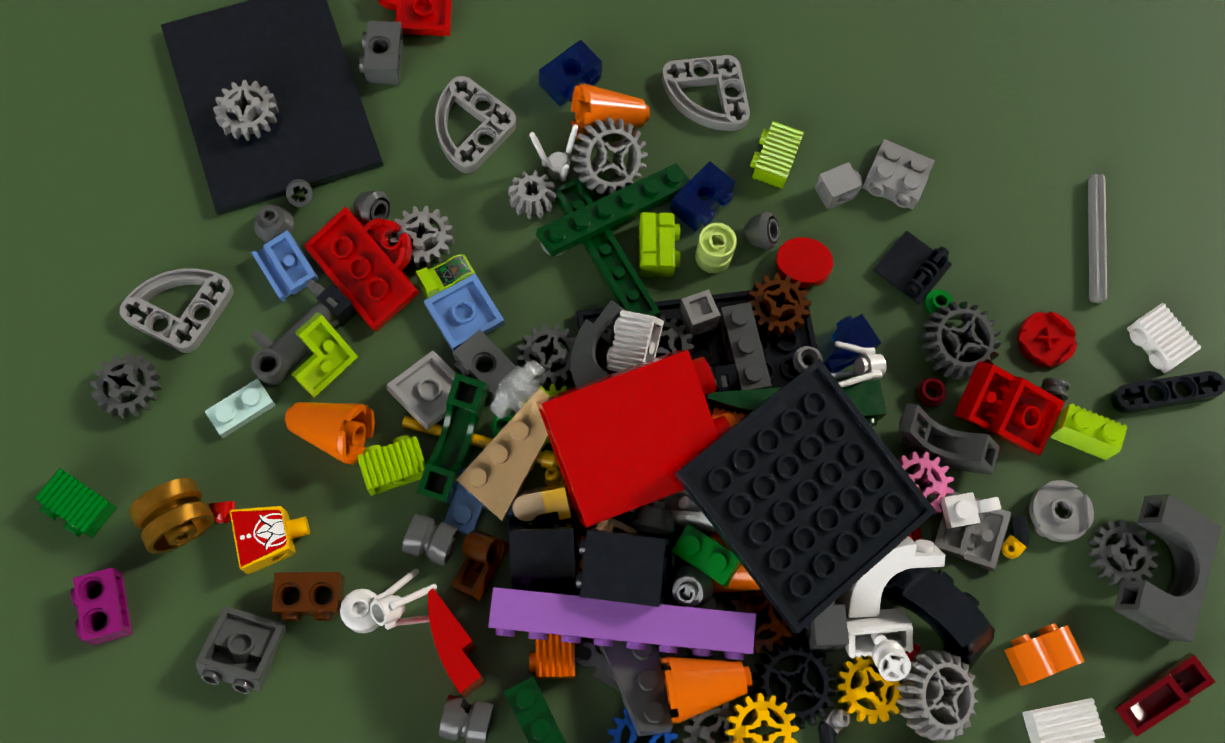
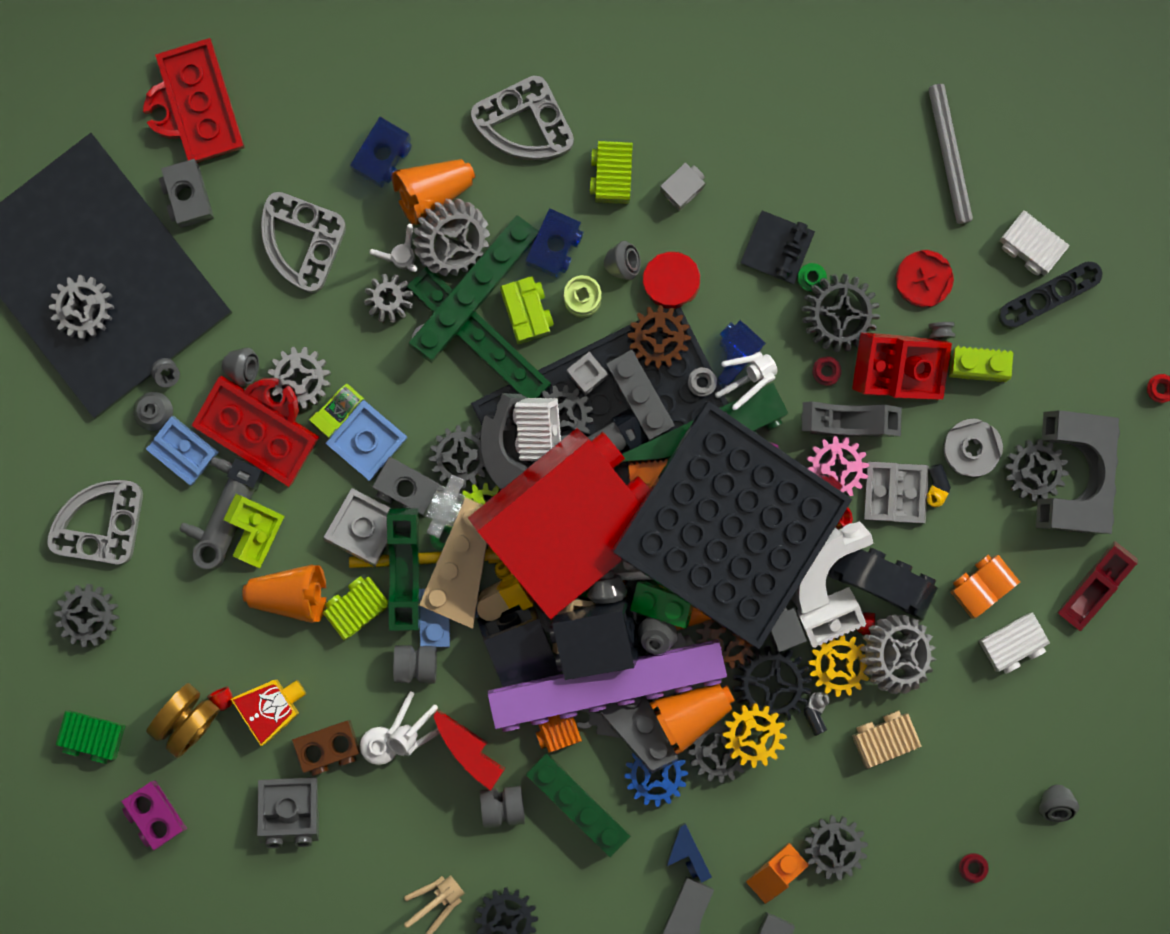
camera: 10 degrees left, 15 degrees up
(240, 408) = (196, 600): light aqua plate -> none
(483, 558) = (466, 672): reddish brown plate -> none
(890, 668) = (848, 647): white wheel -> none
(898, 174) = (738, 151): light grey plate -> none
(964, 510) = (881, 479): white plate -> none

